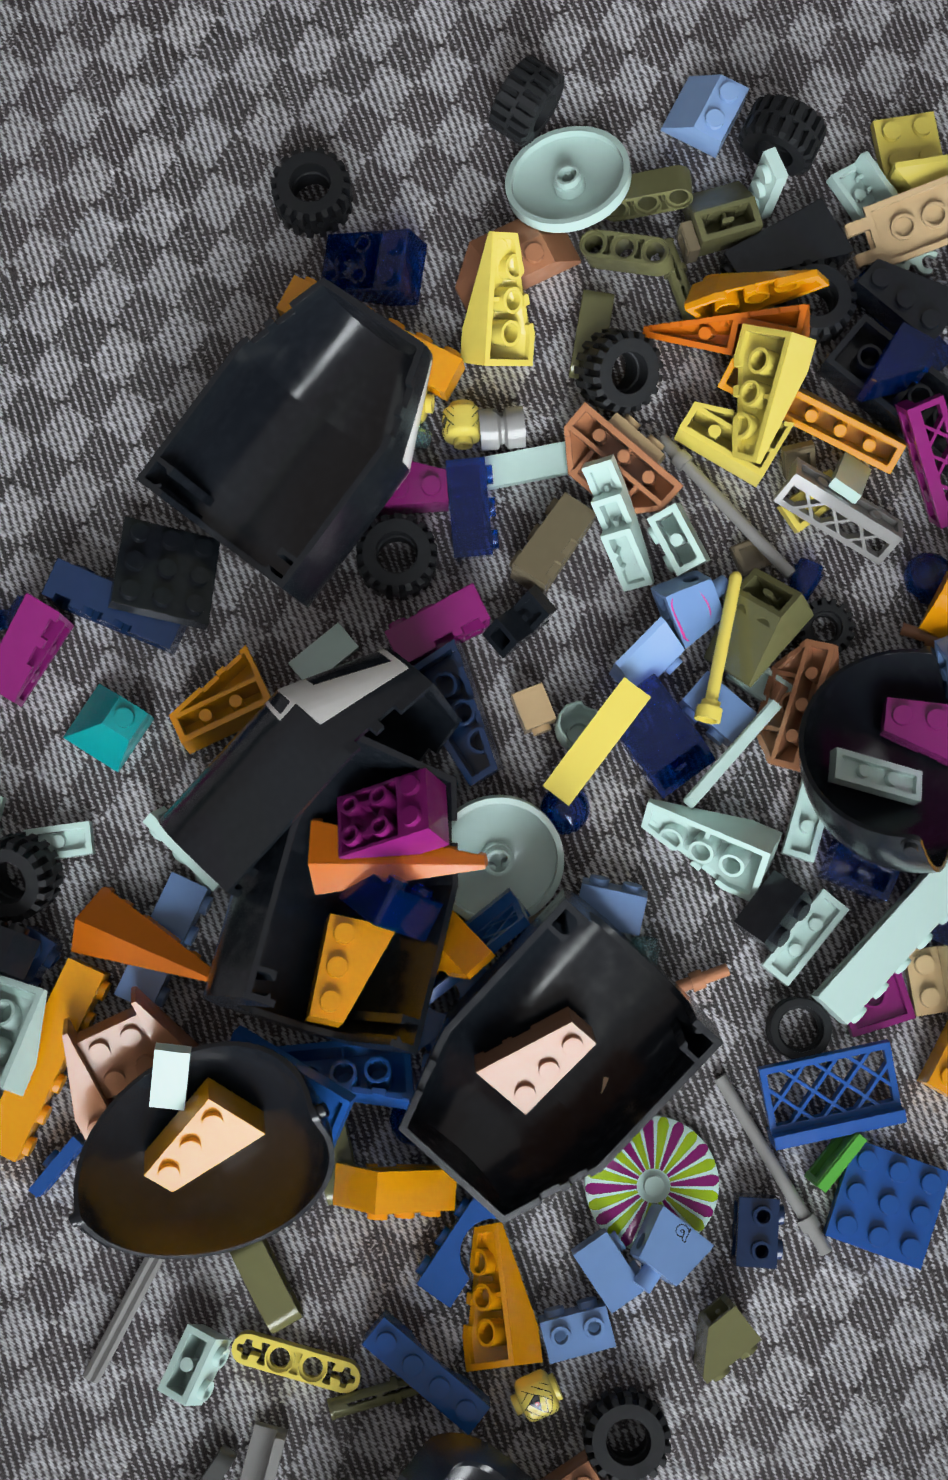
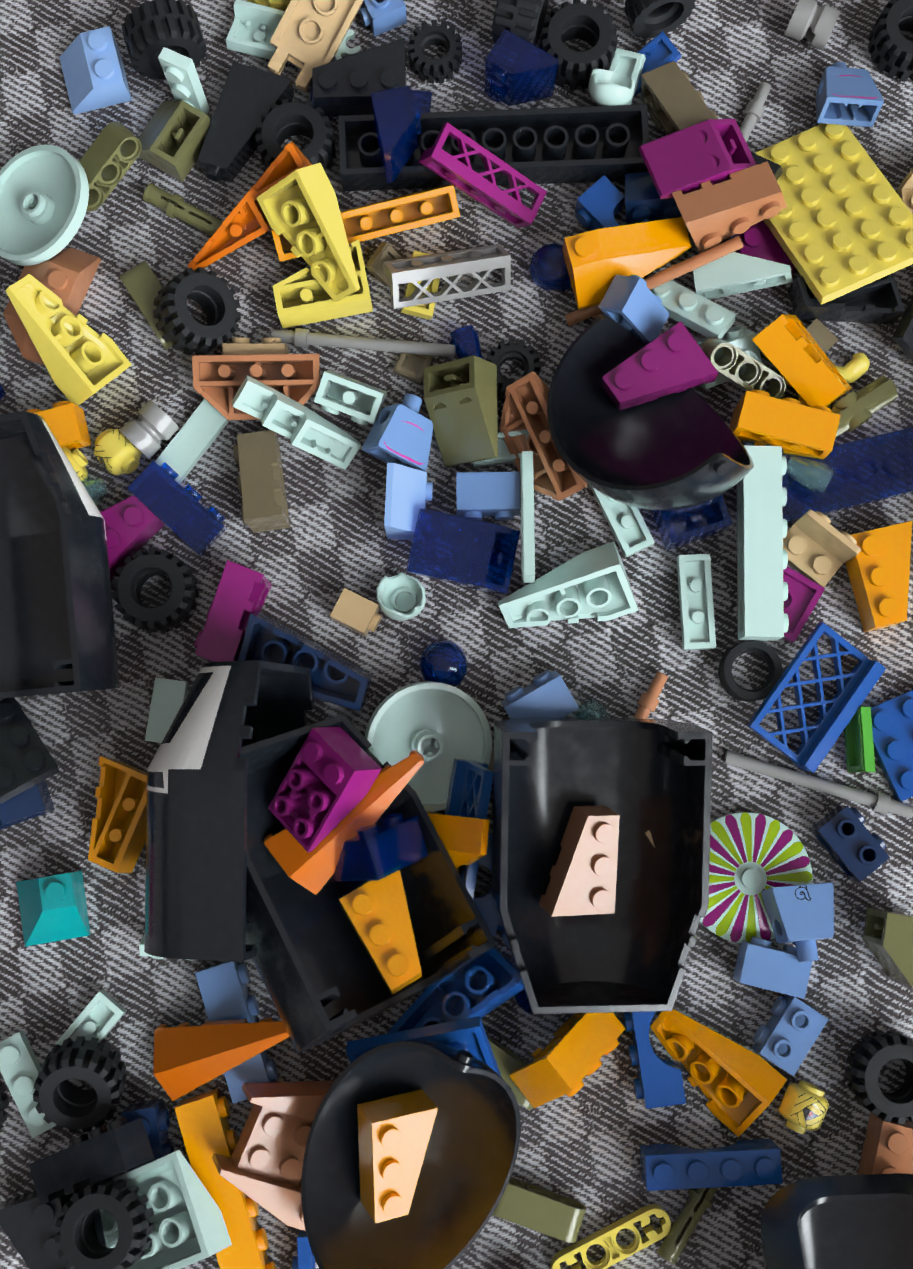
camera: 35 degrees left, 0 degrees up
(170, 1076) = (328, 1131): light aqua tile -> none
(520, 622) = (289, 558): black brick -> none
(596, 741) = (422, 594): light yellow slope -> none
(616, 242) = (112, 222): olive beam -> none
(688, 242) = (165, 176): dark tan tile -> none
(709, 709) = (482, 498): light yellow piece -> none
(750, 291) = (241, 169): light orange wedge -> none
(774, 911) = (658, 603): black brick -> none
(850, 478) = (434, 244): light aqua tile -> none
(875, 776) = (643, 441): light aqua plate -> none

